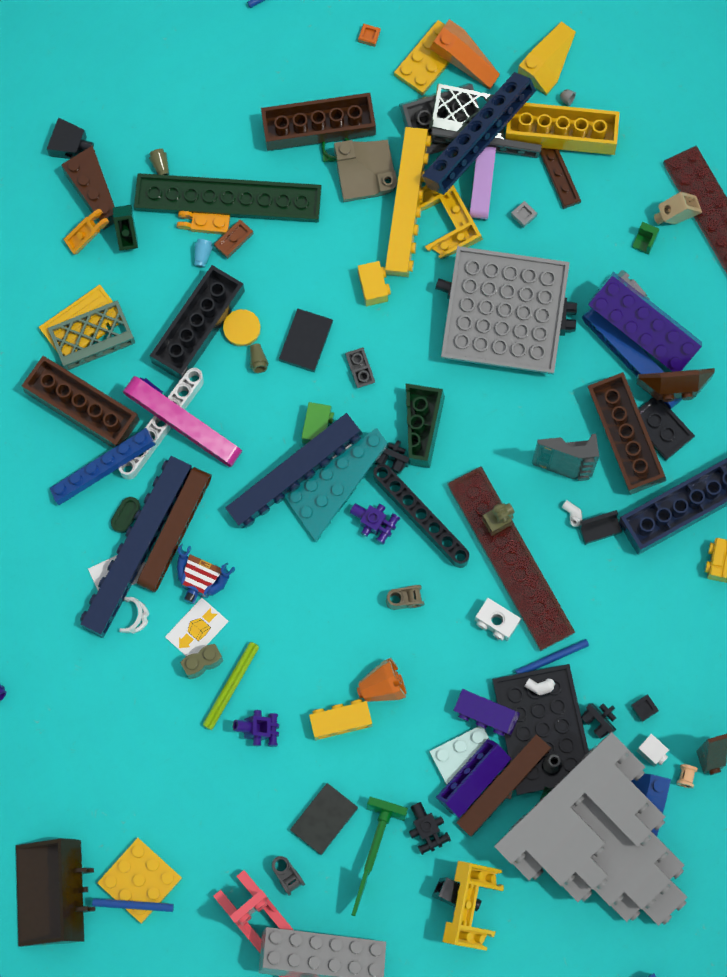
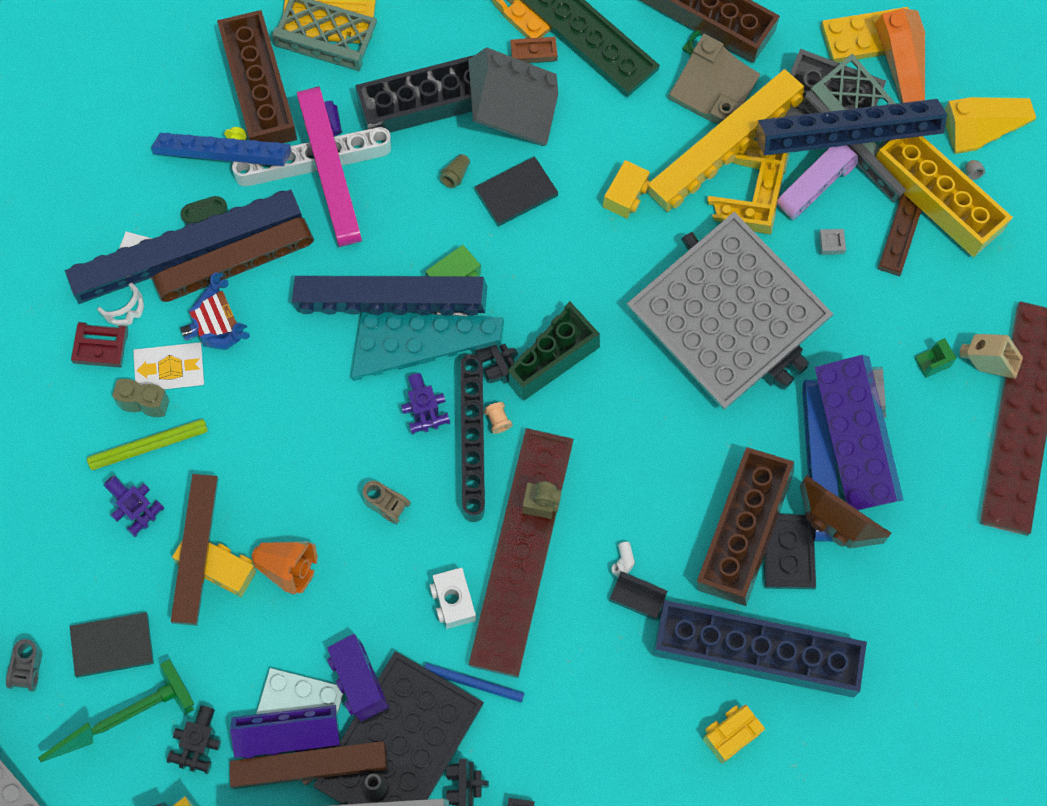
camera: 35 degrees right, 5 degrees down
(100, 449) = (236, 133): none -> neon yellow plate
(146, 656) = (99, 351): none -> dark red plate
(202, 252) = (495, 38): medium azure cone -> none
(241, 327) = (465, 135): yellow tile -> none
(255, 281) = (512, 95): none -> dark grey slope
(324, 721) = (194, 550): none -> reddish brown tile
(360, 367) = (543, 256): dark grey slope -> none
(425, 491) = (498, 417): none -> light nougat bush
(540, 688) = (433, 701): white arm -> none
(568, 459) = (663, 499): dark grey piece -> none

